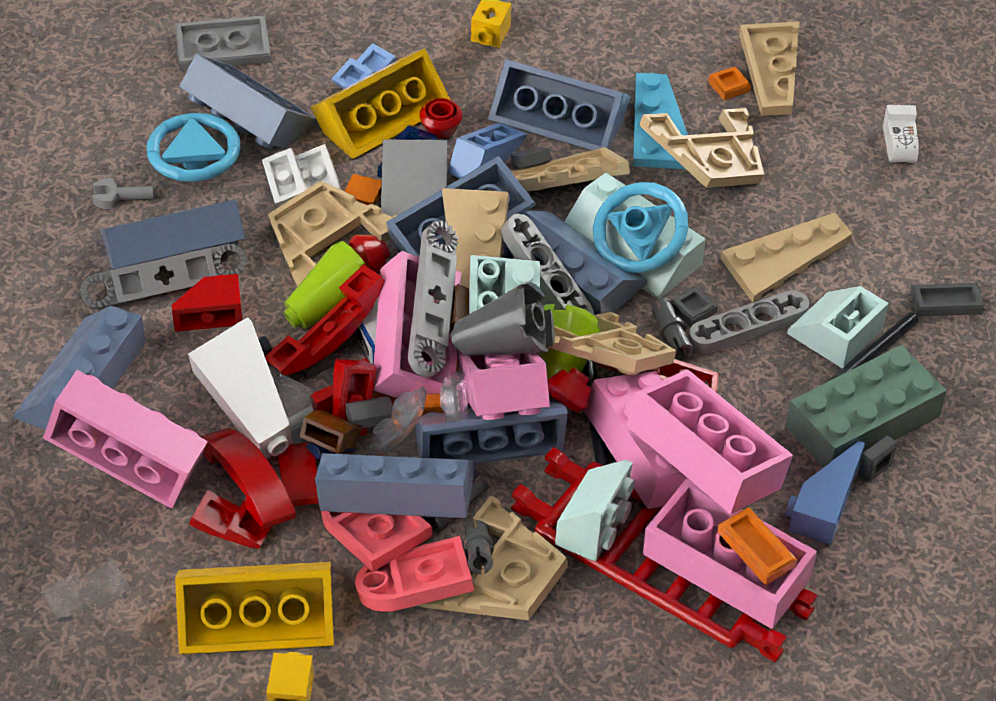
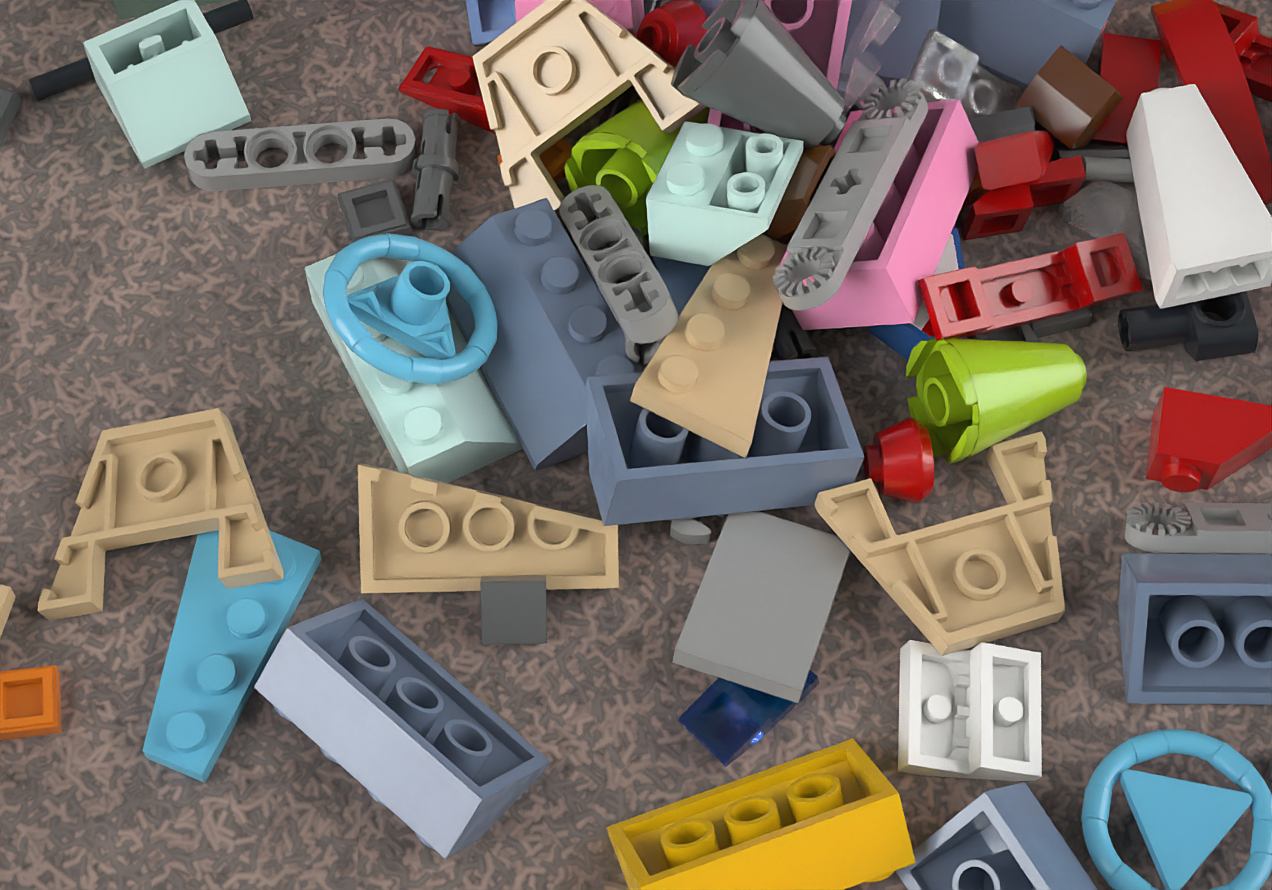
camera: 160 degrees left, 15 degrees up
(364, 189) = (861, 638): orange tile -> none
(441, 117) = (643, 739): red cone -> none
(482, 146) = (591, 647): medium blue slope -> none
(776, 257) = (171, 268): tan wing -> none

